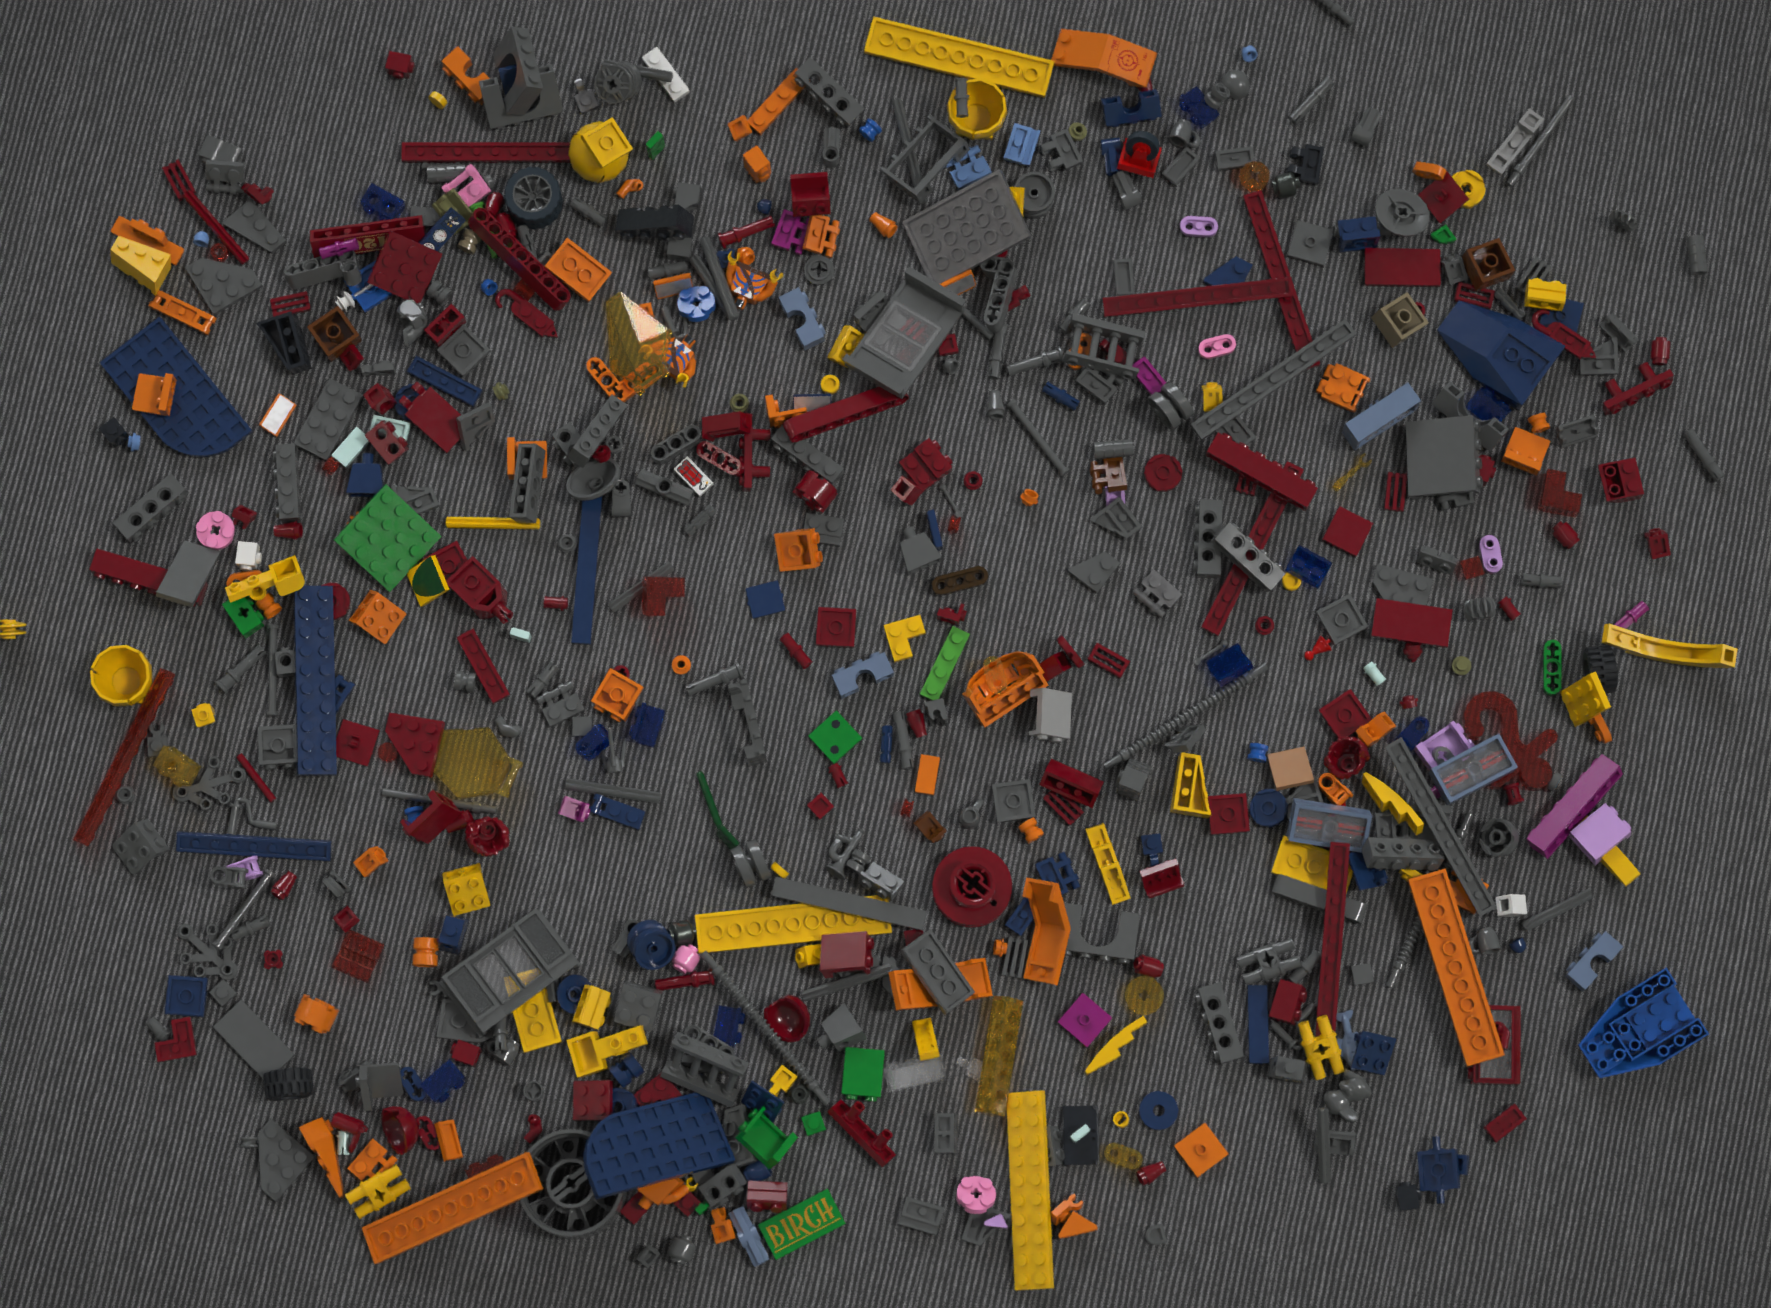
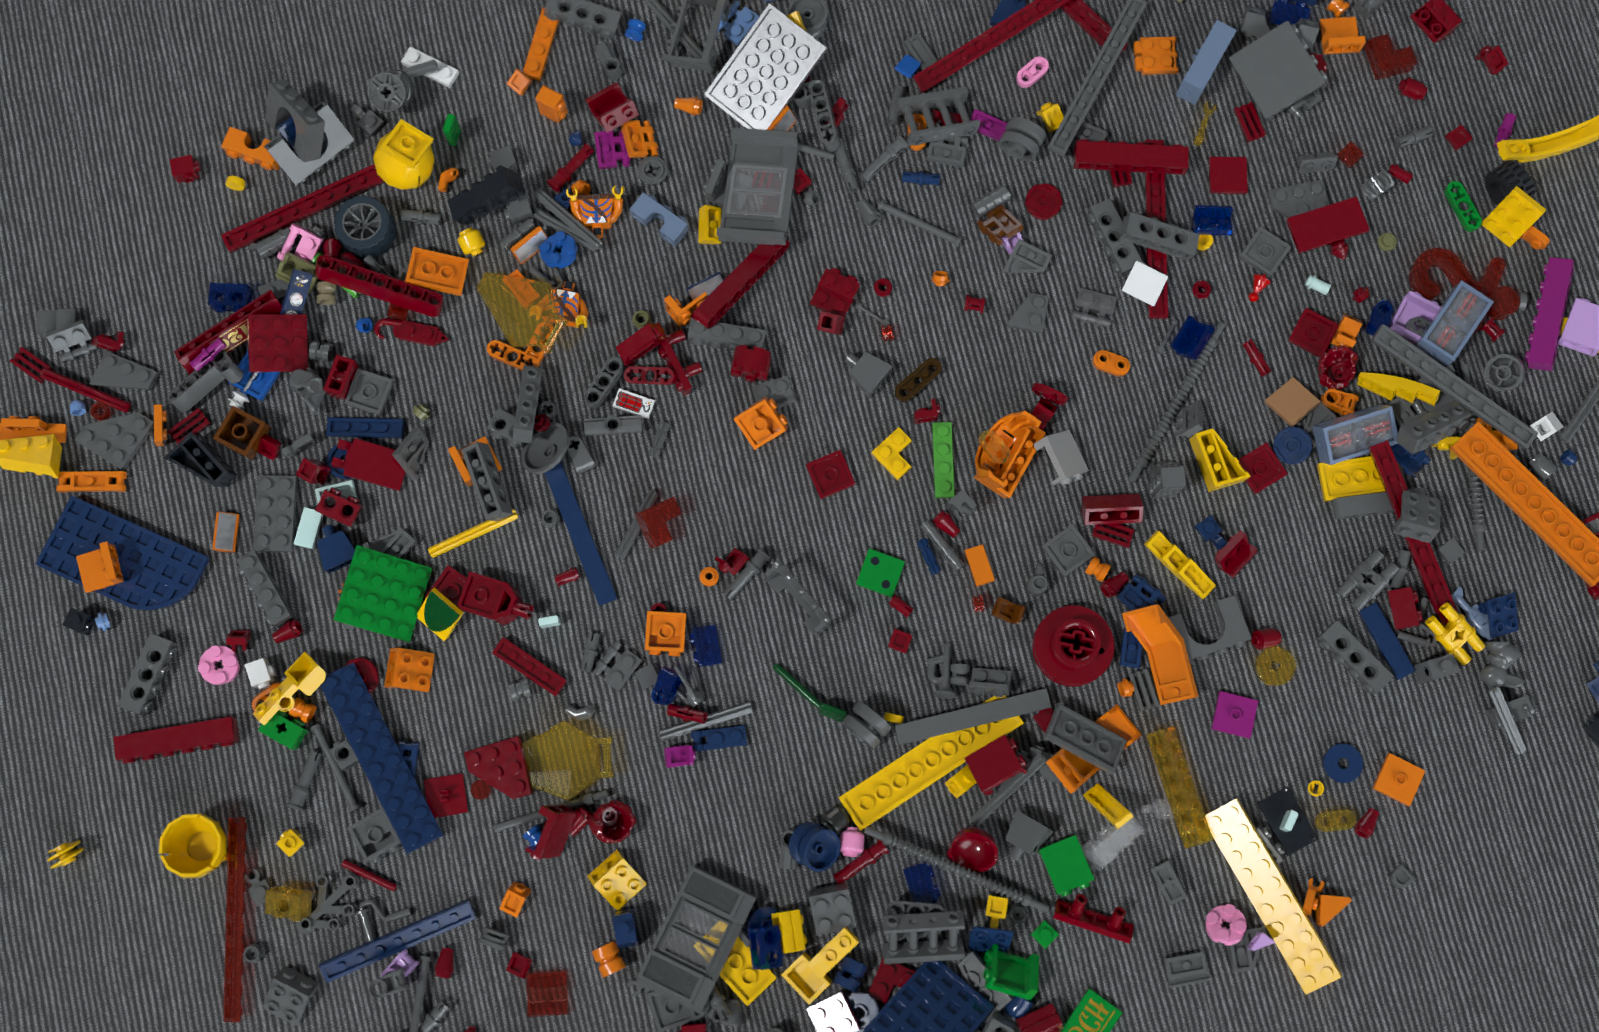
camera: 30 degrees left, 0 degrees up
(188, 574) = (211, 718): dark grey tile -> none
(263, 298) = (160, 417): none -> orange plate
(331, 466) = (298, 554): clear red bush -> none
(559, 1006) = (760, 948): none -> clear blue brick
(607, 782) = (698, 716): none -> dark red pin
(622, 257) = (471, 241): none -> yellow head
(708, 663) = (733, 562): none -> dark red bracket
(765, 599) = (753, 481): dark blue piece -> none
(796, 651) = (805, 513): dark red pin -> none
(830, 384) = (713, 264): yellow tile -> none
(876, 665) = (885, 491): sand blue arch -> none
(934, 530) = (872, 345): dark blue tile -> none
(1038, 851) = (1114, 584): none -> dark red cone
(1048, 536) = (974, 304): none -> dark red bush
(1094, 652) = (1068, 378): dark red tile -> none
(1103, 286) = (908, 66): none -> blue slope
(1110, 1050) = (1273, 731): yellow slope -> none
(1143, 652) = (1111, 364): none -> orange plate
(1212, 594) = (1145, 283): none -> white sticker
(1257, 752) = (1256, 402): blue wheel -> none
(1281, 712) = (1256, 358): none -> dark red pin
(1340, 925) = (1418, 517): none -> dark grey bracket
(1490, 553) = (1358, 135): lavender plate -> none
(1583, 601) = (1458, 137): none -> dark red plate

